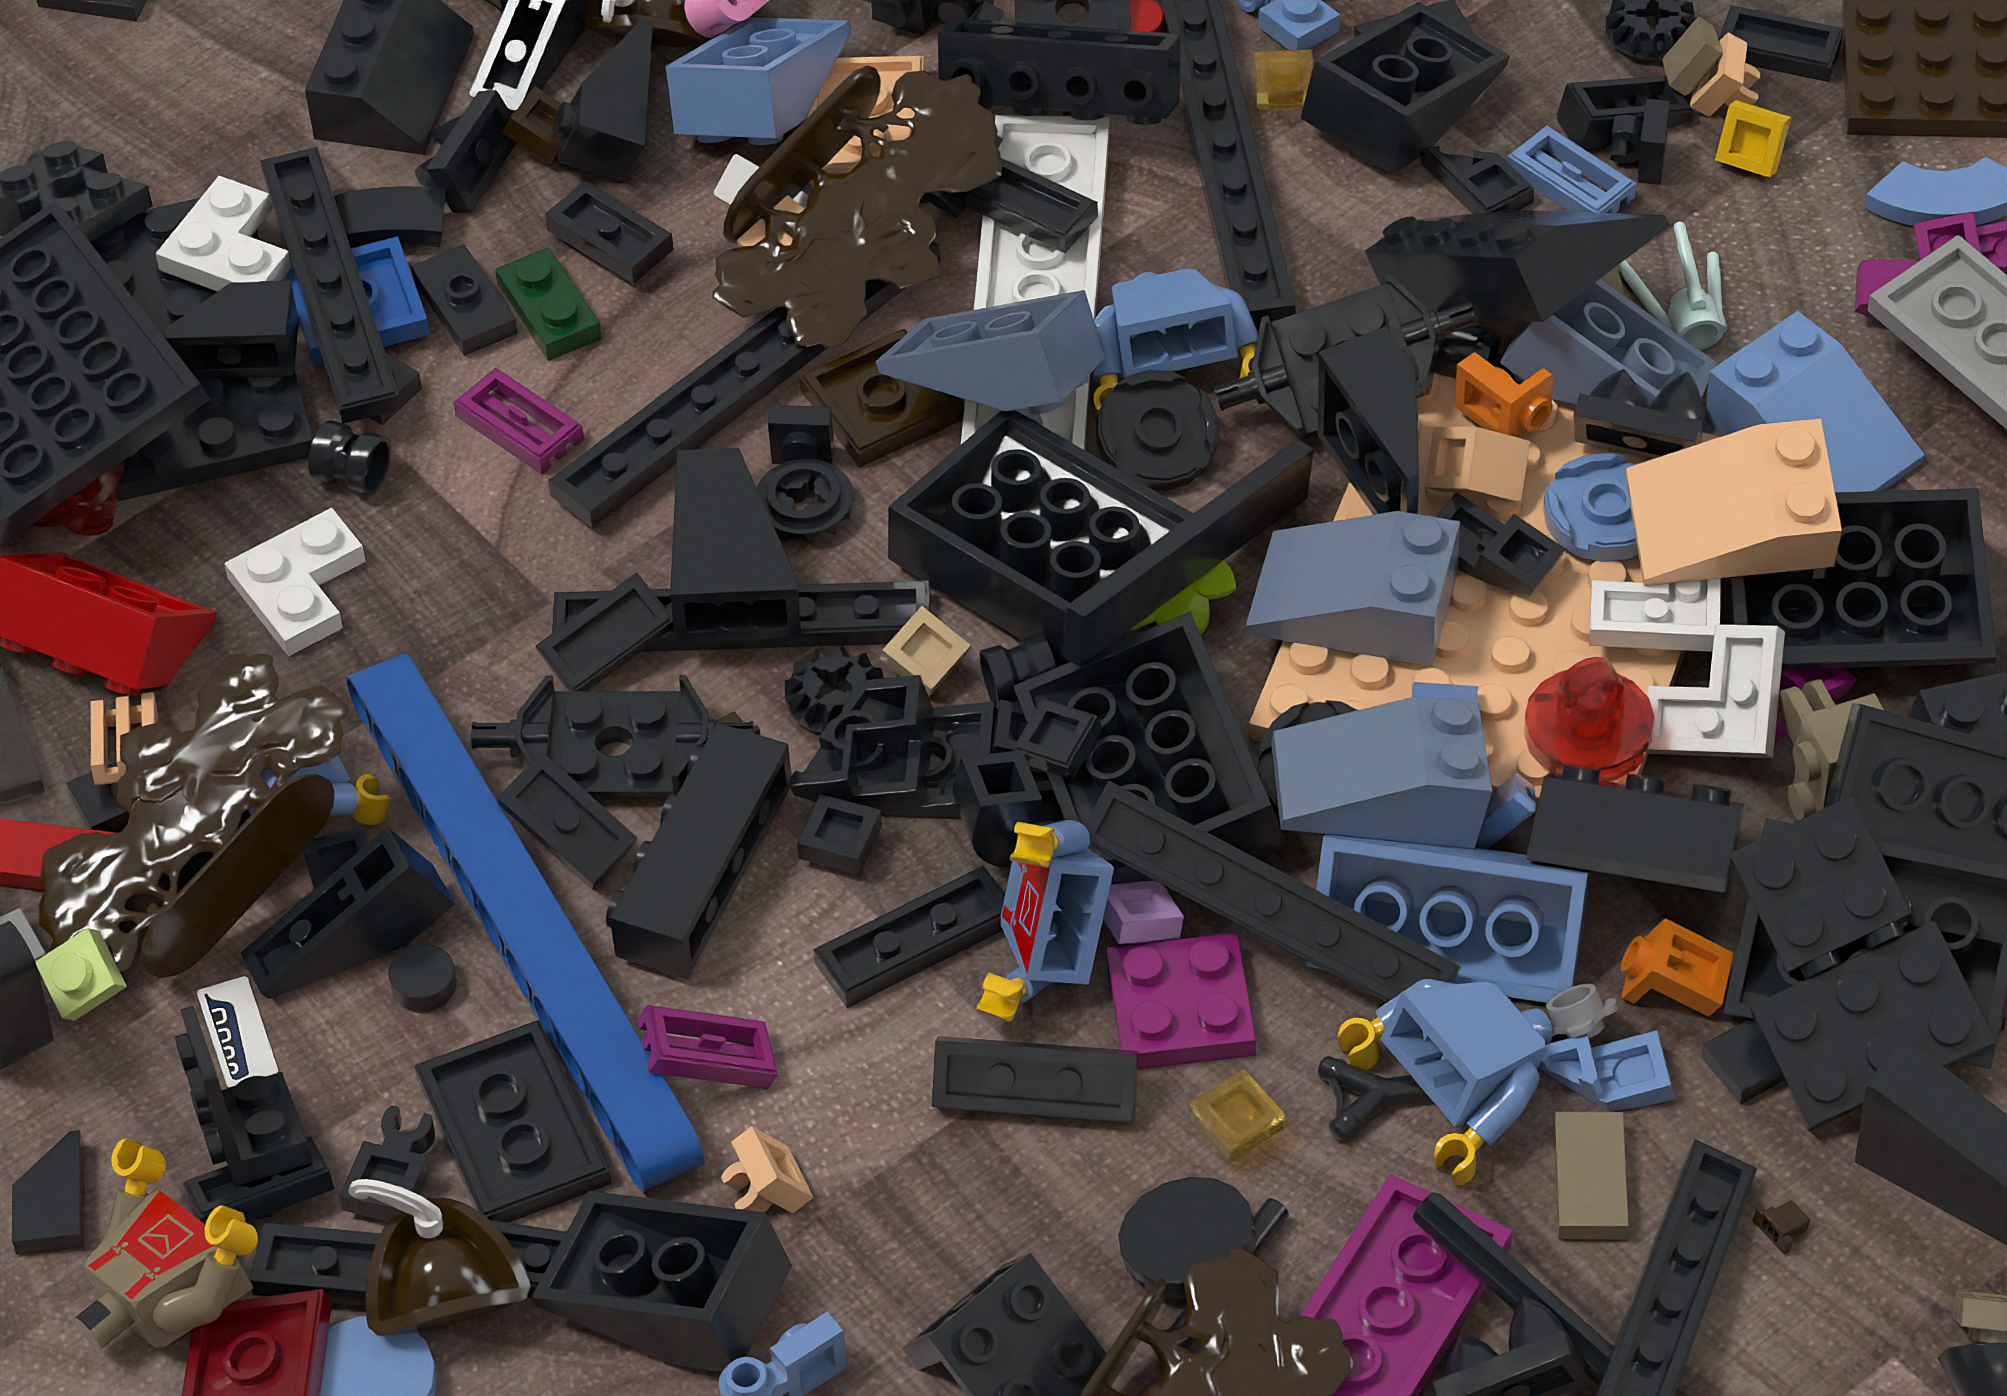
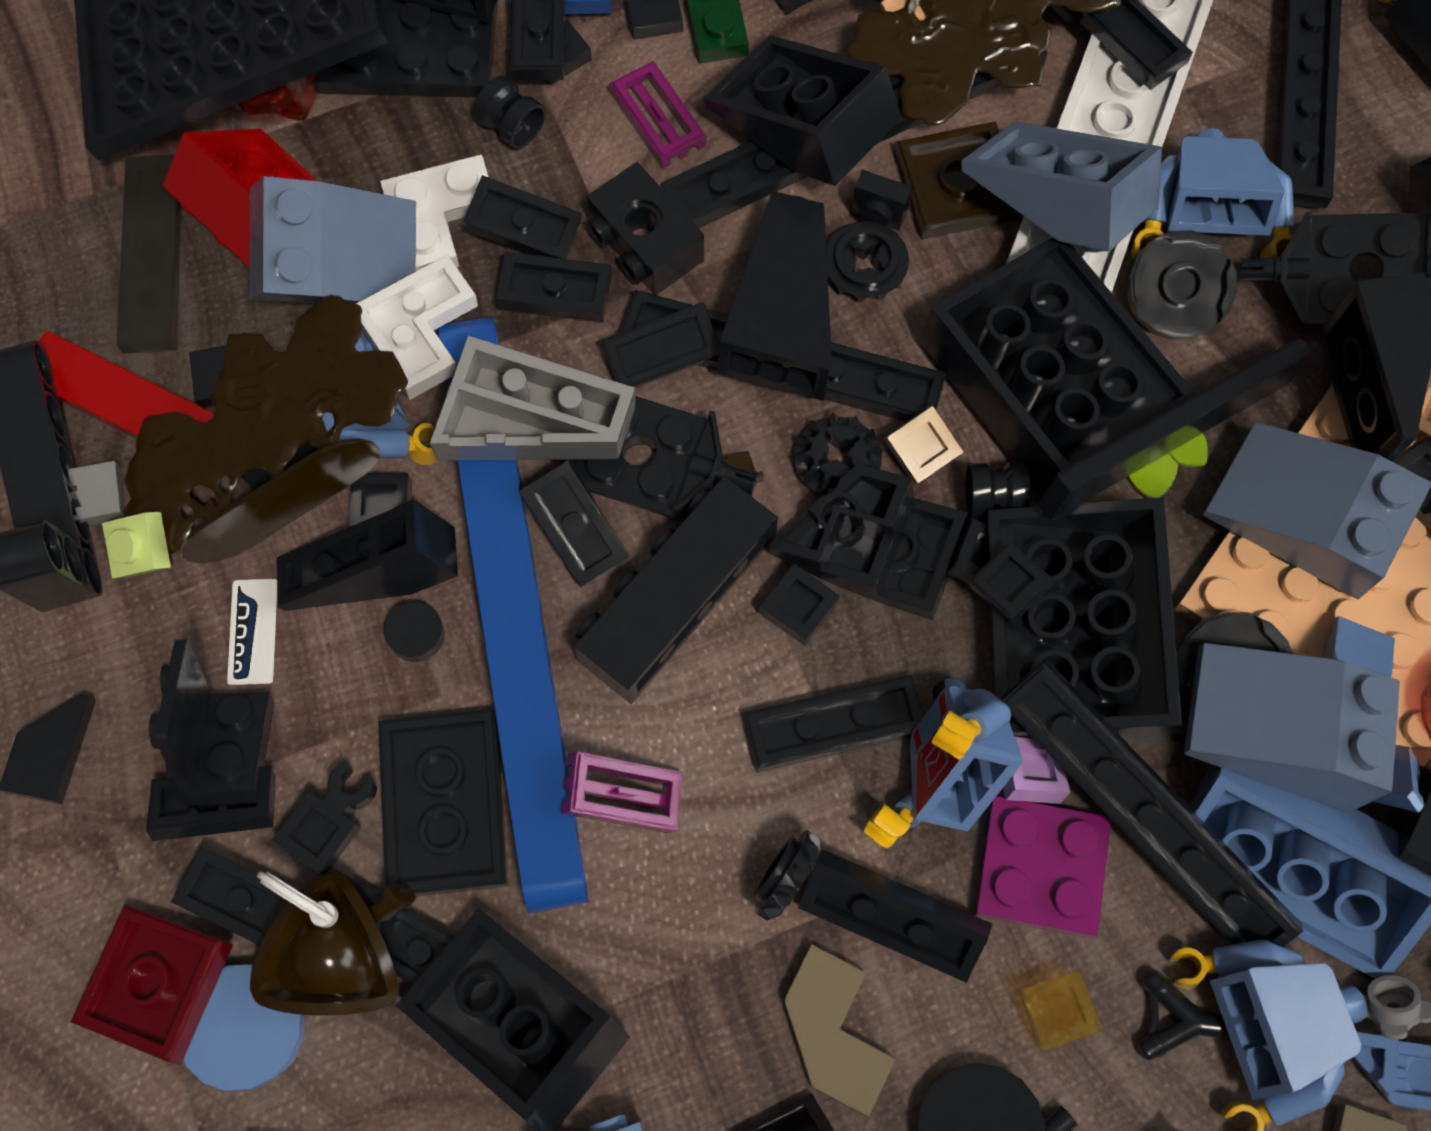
camera: 15 degrees right, 20 degrees up
(122, 718) = (229, 316): light nougat tile -> none
(159, 1262) = (98, 865): torso -> none
(195, 605) = (327, 241): none -> sand blue slope
(327, 655) = (408, 313): none -> white plate
(403, 557) = (521, 220): none -> black plate
(461, 612) = (554, 286): none -> black plate
(488, 708) = (529, 409): none -> light grey wedge
(496, 1205) = (395, 899): none -> dark brown piece
(546, 529) = (638, 202): none -> black brick
(689, 358) = (808, 106): none -> black slope
(771, 1172) = (638, 936): light nougat tile -> none
(907, 1066) = (786, 874): none -> black gear
(983, 1191) = (832, 1058): none -> dark tan tile
(994, 796) = (948, 635): black brick -> none

